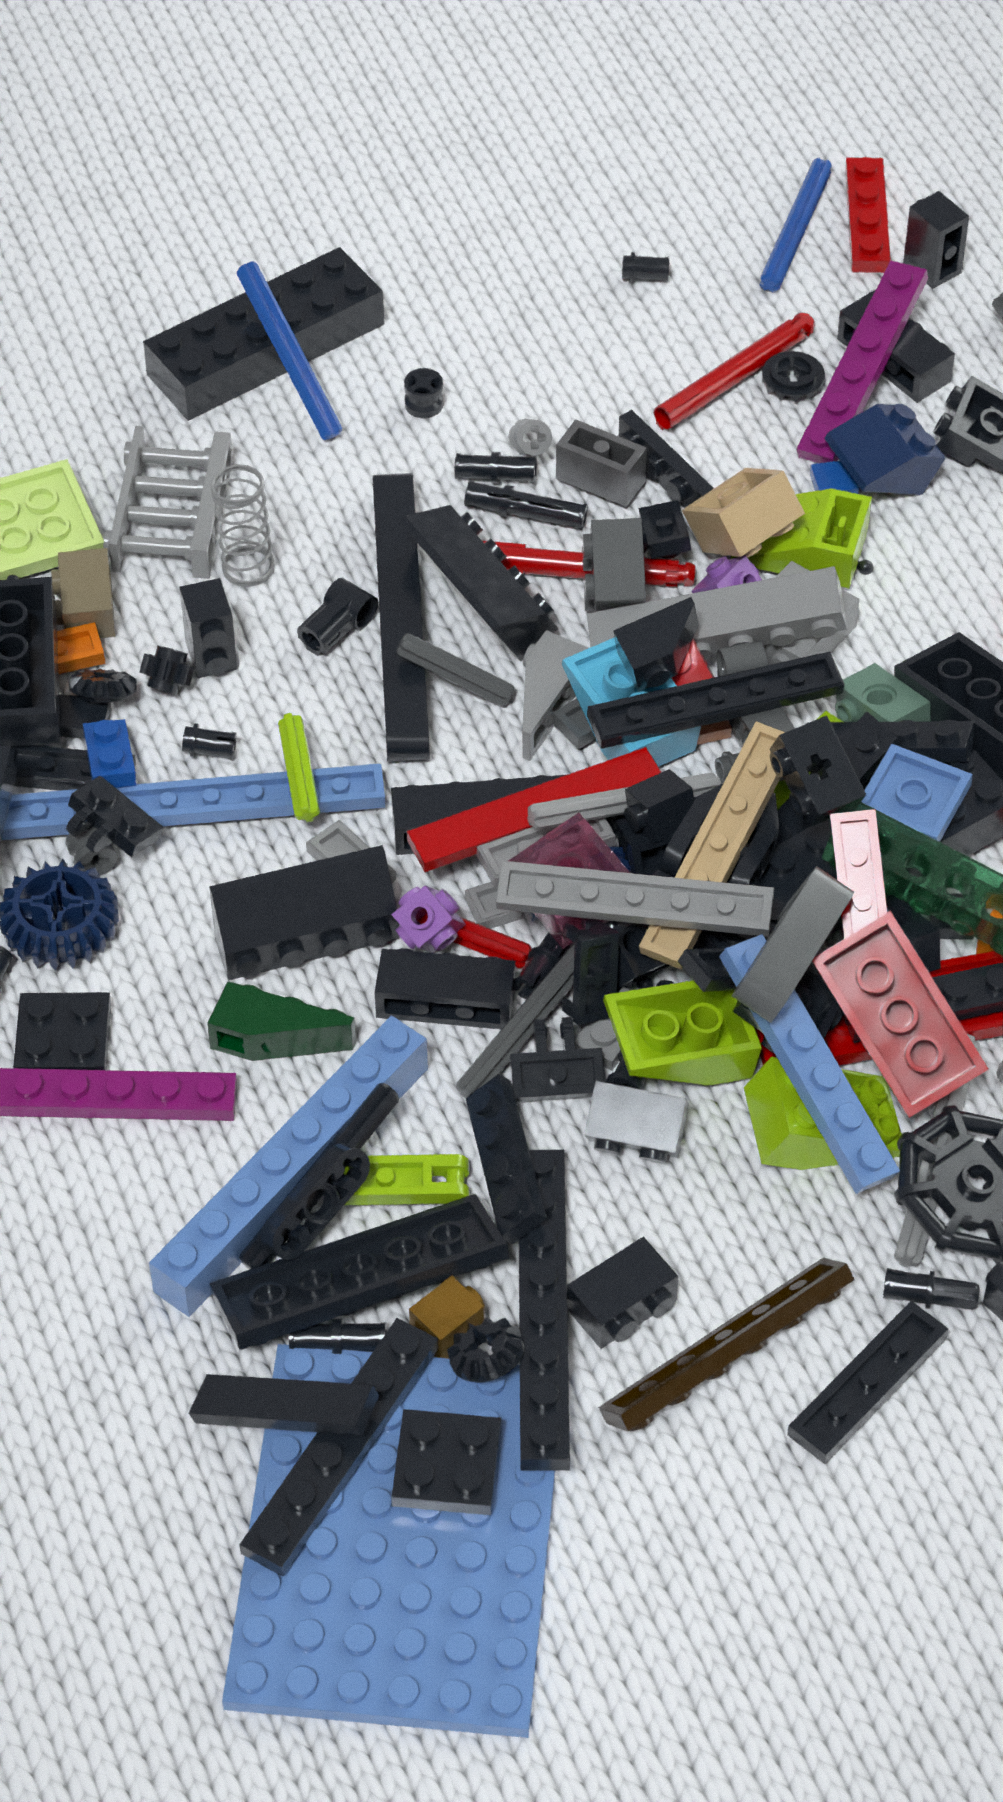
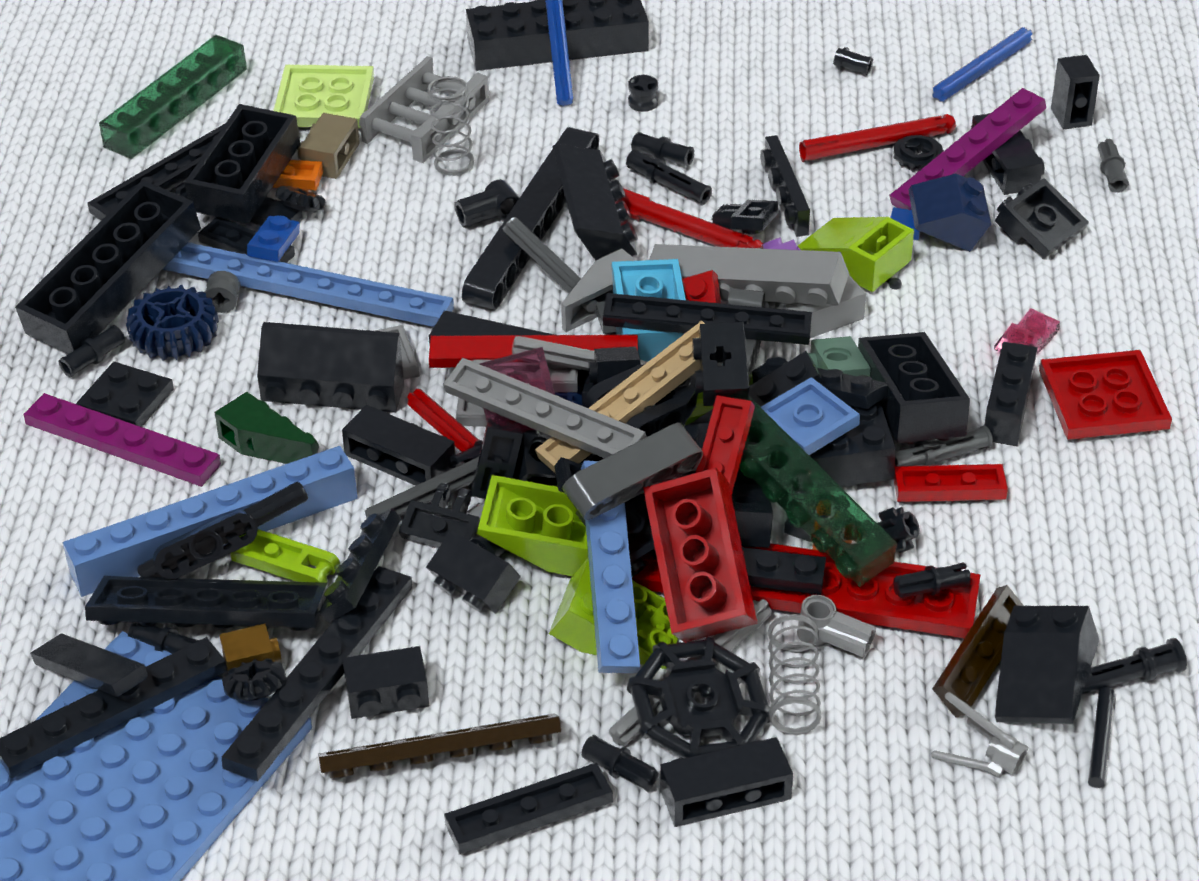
camera: 25 degrees right, 10 degrees down
(114, 817) = (240, 269): black hinge -> none
(167, 669) = (349, 201): black gear -> none
(208, 628) = (389, 182): black brick -> none
(208, 742) = (341, 250): black pin -> none
(298, 767) = (391, 281): lime axle -> none
(442, 919) = (411, 396): medium lavender brick -> none
(446, 1462) = (176, 744): black plate -> none
(535, 447) = (692, 126): light grey bush -> none
(600, 463) = (734, 162): flat silver brick -> none
(616, 564) = (694, 214): dark grey brick -> none
(657, 644) = (682, 266): black slope -> none
(744, 512) = (810, 210): tan brick -> none
(867, 214) = (1041, 68): red plate -> none

